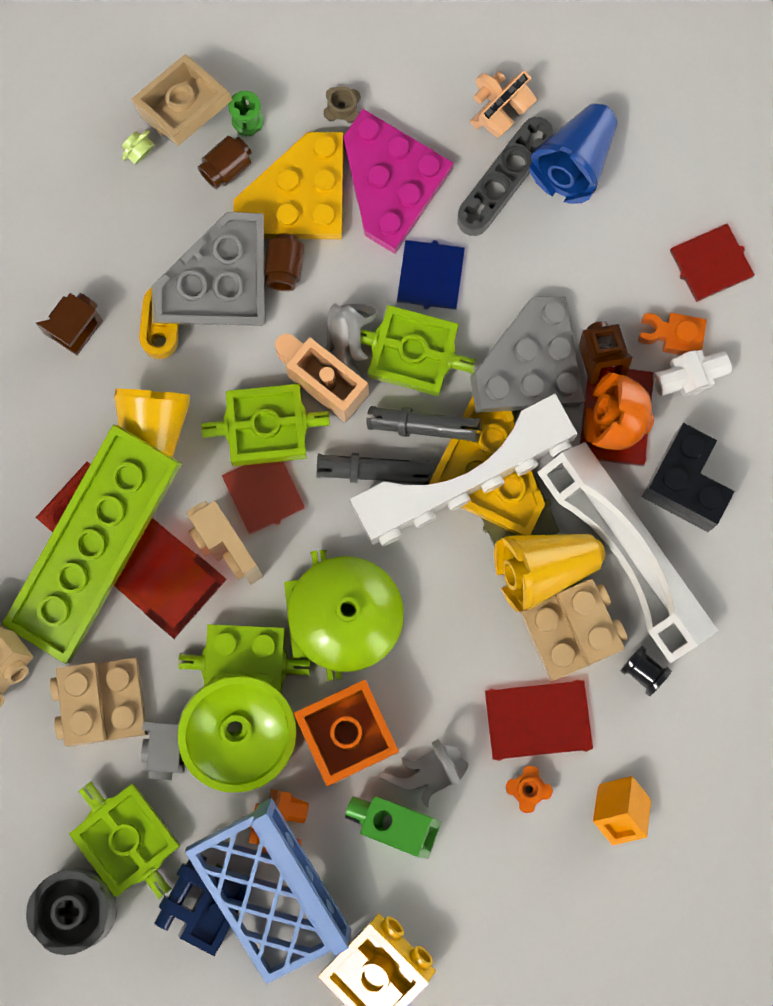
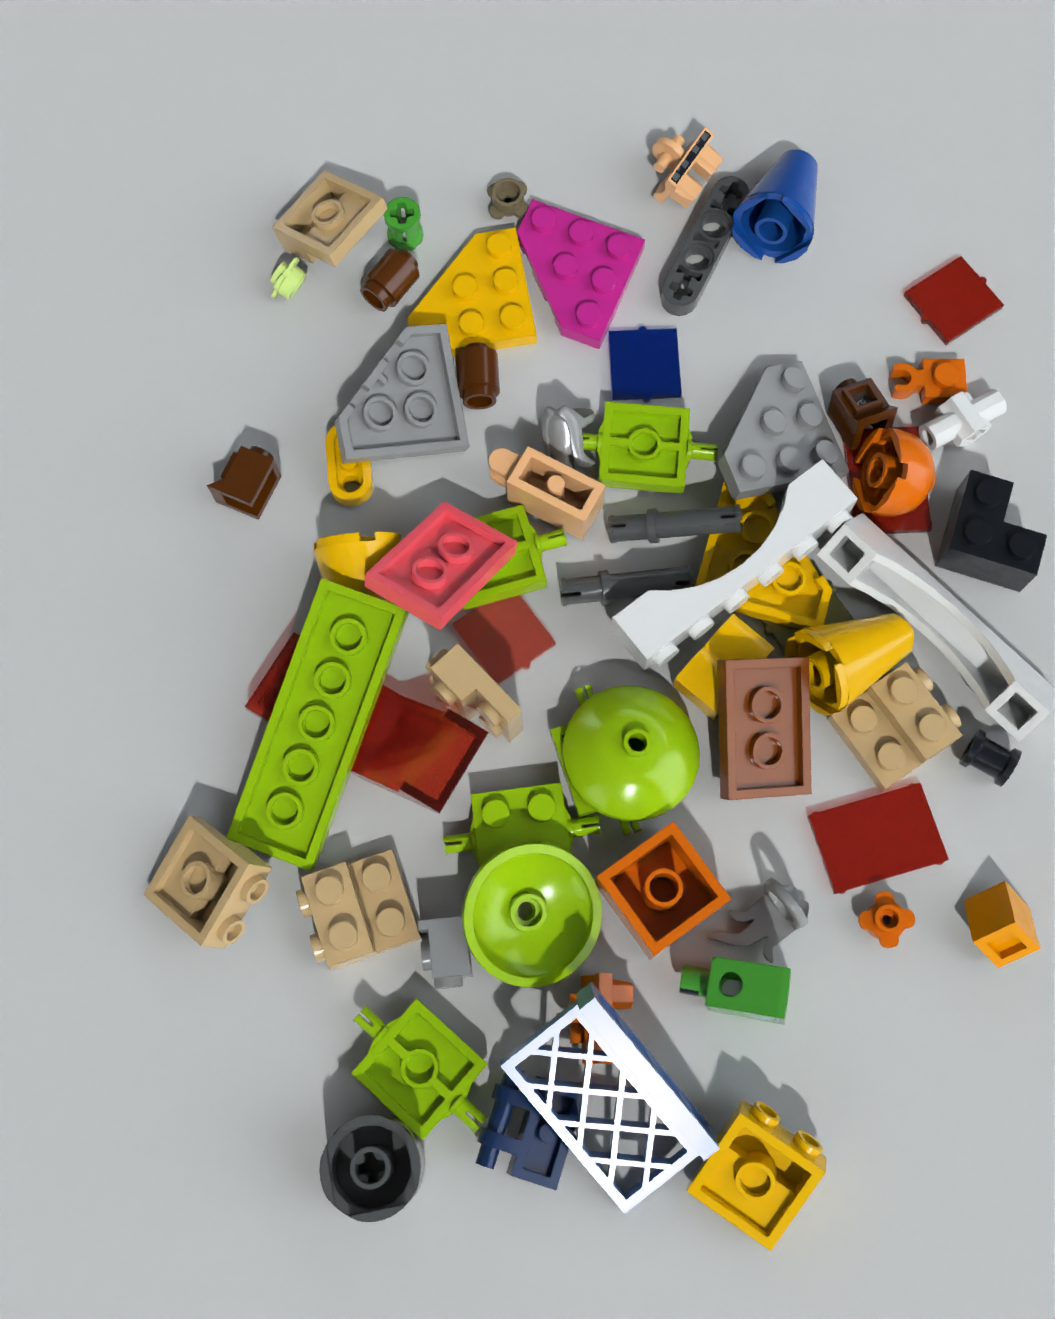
camera: 10 degrees left, 5 degrees down
(215, 428) = (440, 565): none -> coral plate
(440, 555) = (700, 676): none -> yellow brick
(460, 613) = (764, 727): none -> dark orange plate

